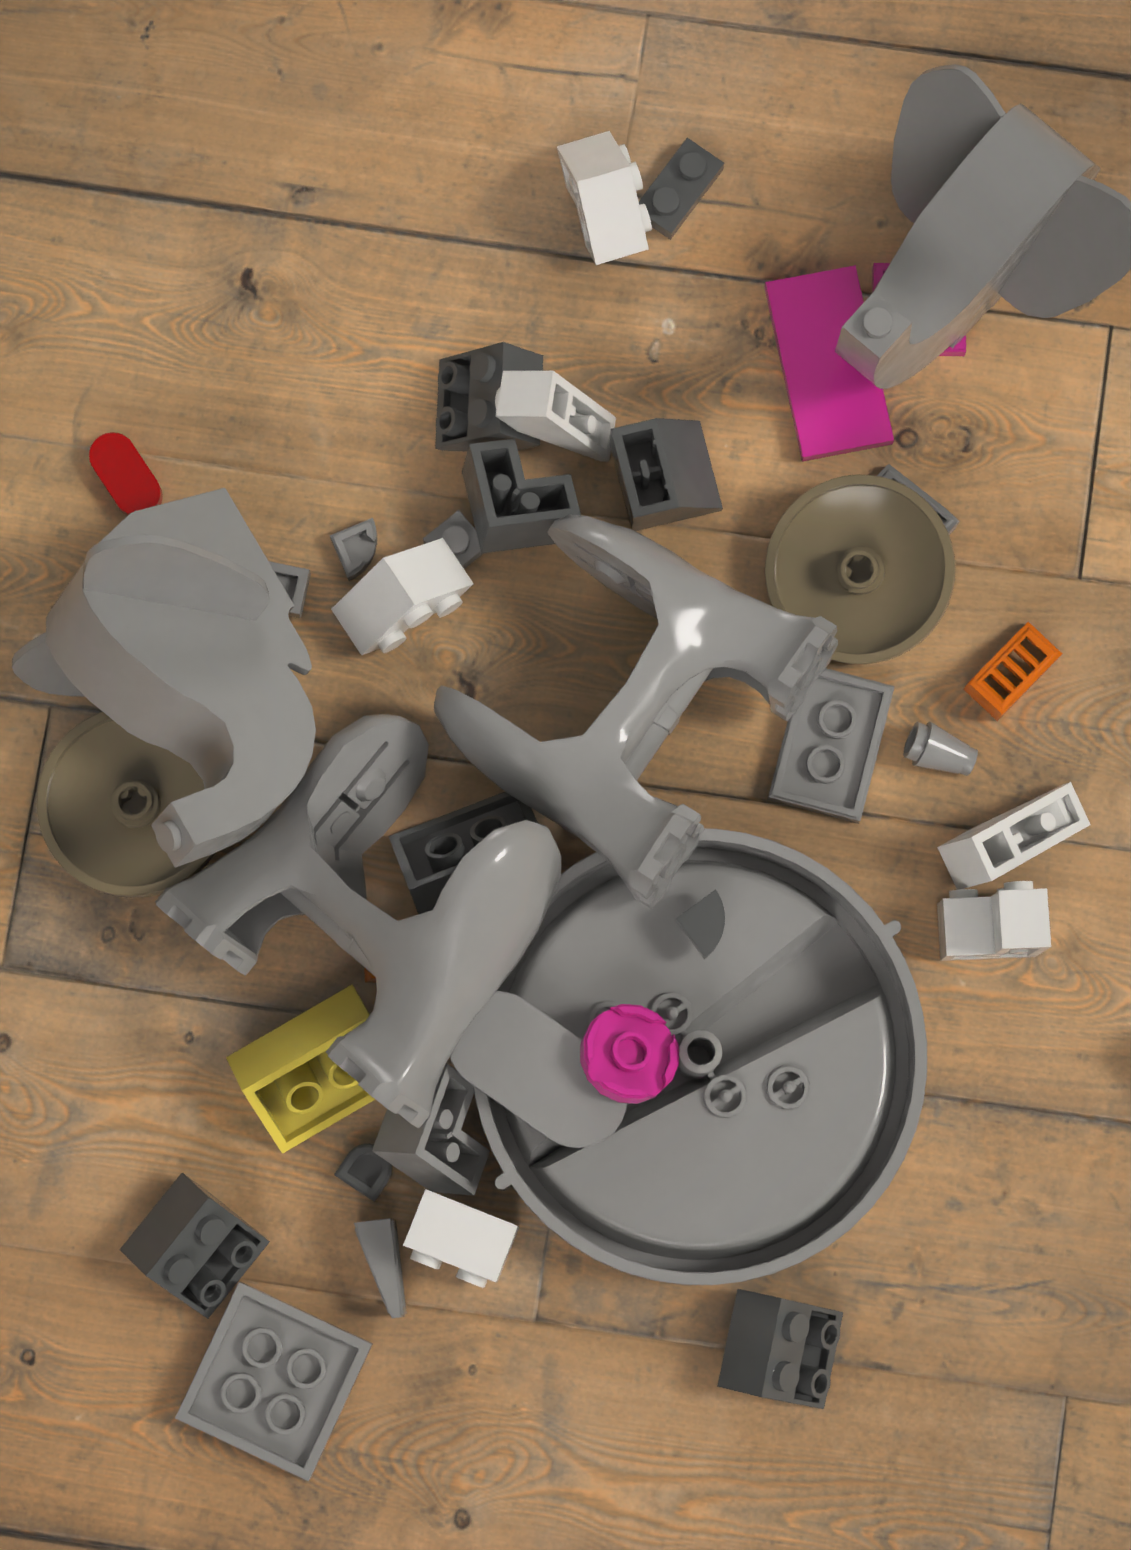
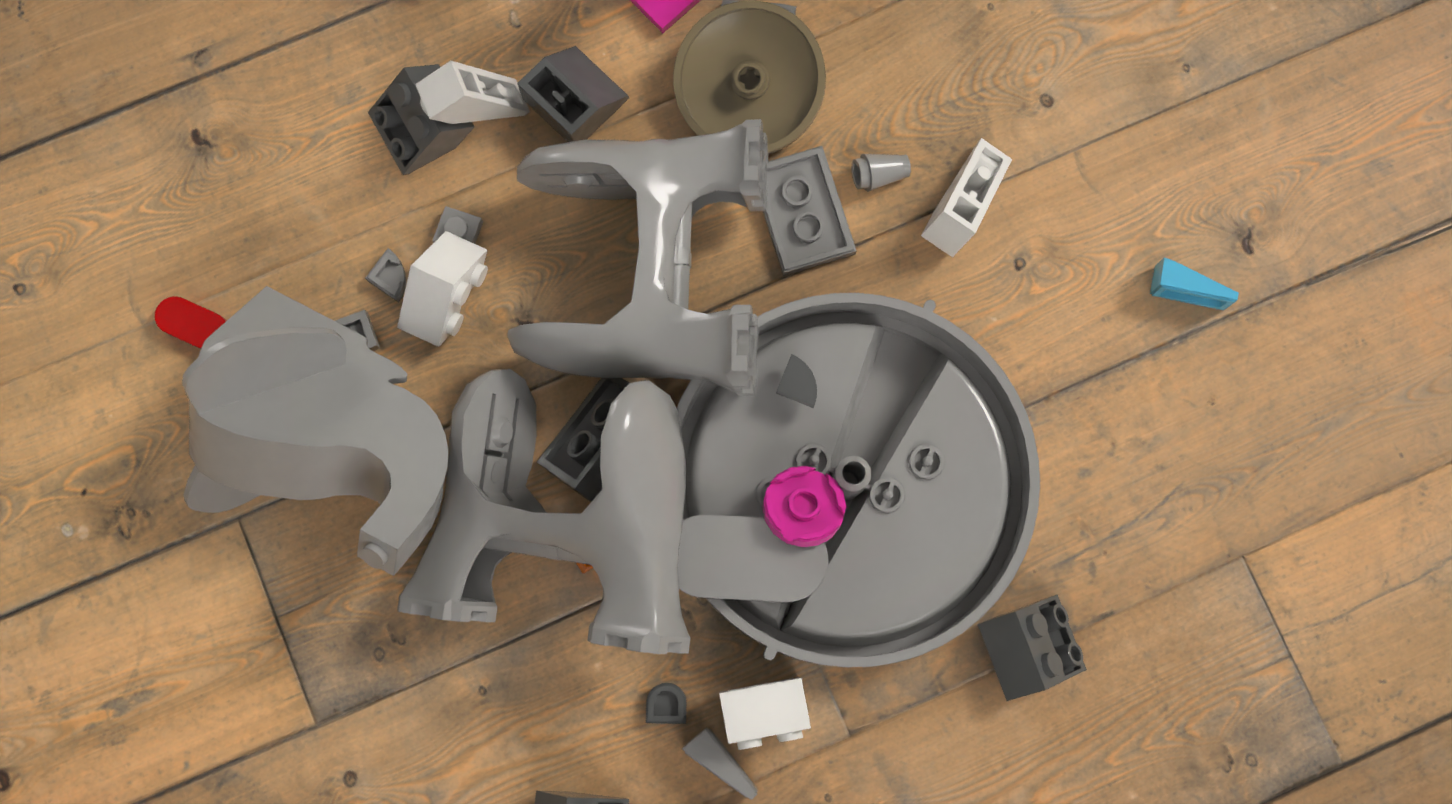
camera: 30 degrees left, 0 degrees up
(100, 804) = (313, 563): dark tan dish -> none
(292, 1077) = (574, 673): light yellow slope -> none
(439, 1151) = (713, 659): light grey brick -> none
(507, 507) = (476, 181): dark grey brick -> none
(987, 696) = (888, 114): orange slope -> none
(994, 927) = (1005, 256): white brick -> none

